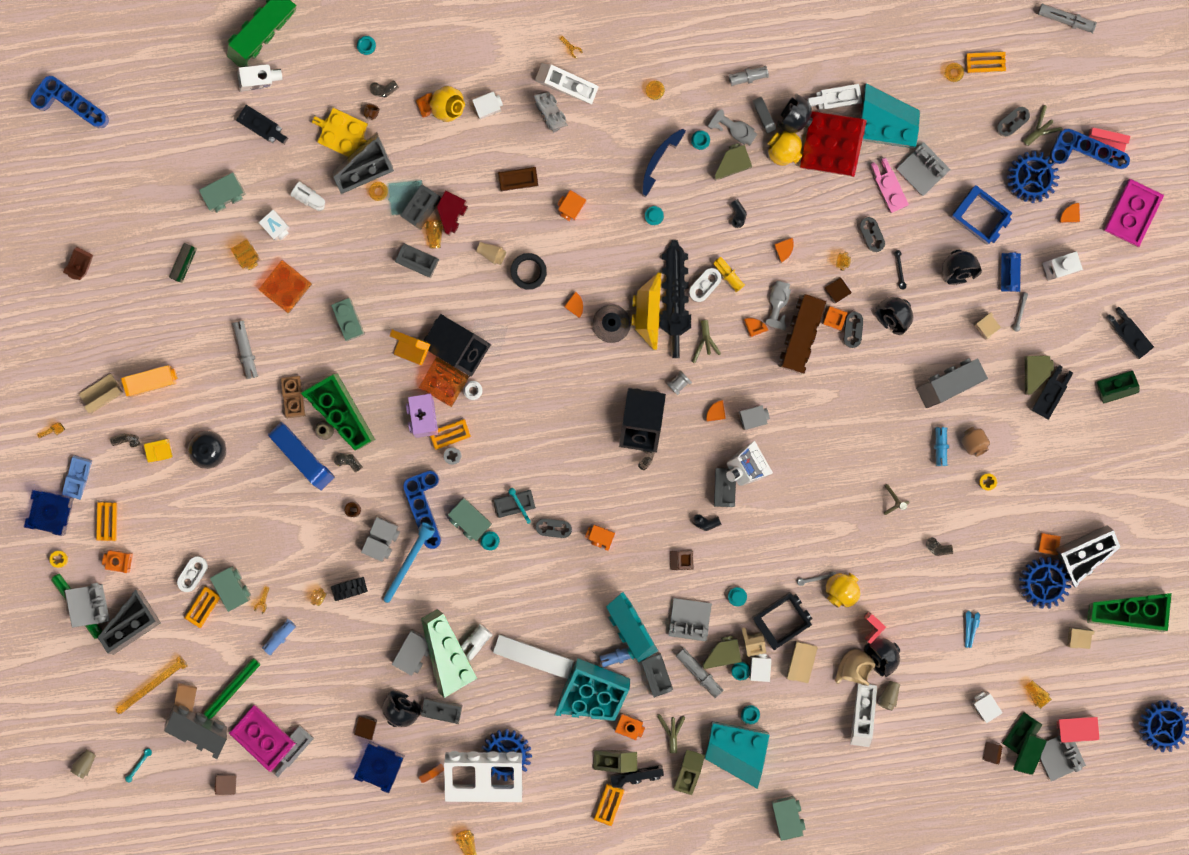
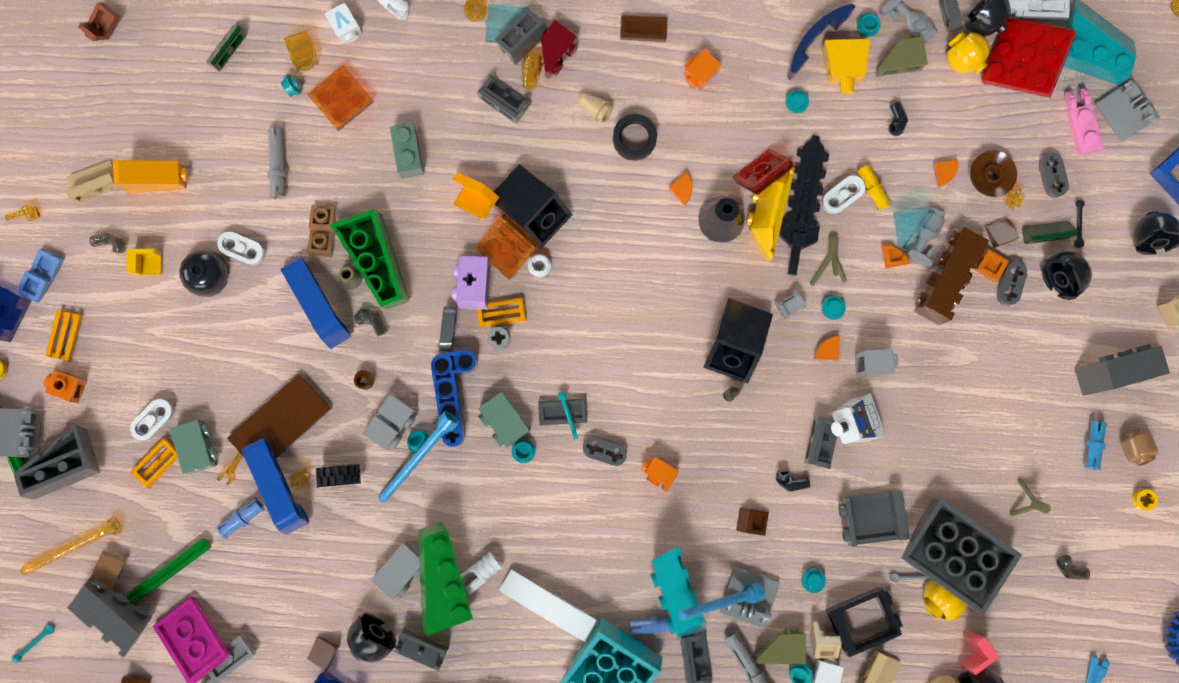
camera: 10 degrees right, 5 degrees down
(232, 425) = (242, 248): none -> white plate
(243, 284) = (291, 85): none -> teal plate
(292, 557) = (282, 418): none -> reddish brown tile
(302, 609) = (273, 487): none -> blue beam
(404, 549) = (416, 440): none -> teal plate
(410, 456) = (447, 329): none -> dark grey beam
(636, 280) = (763, 171): none -> clear red tile
(687, 176) = (846, 62): none -> yellow torso
(689, 616) = (751, 593): none -> dark azure piece
(714, 378) = (833, 307): none -> teal plate
(762, 300) = (910, 224): none -> clear light blue slope
(775, 538) = (874, 518): none -> dark grey panel
(829, 236) = (1001, 166): none -> reddish brown dish
(845, 555) = (960, 555): none -> dark grey slope
(875, 282) = (1048, 232): none -> dark green slope

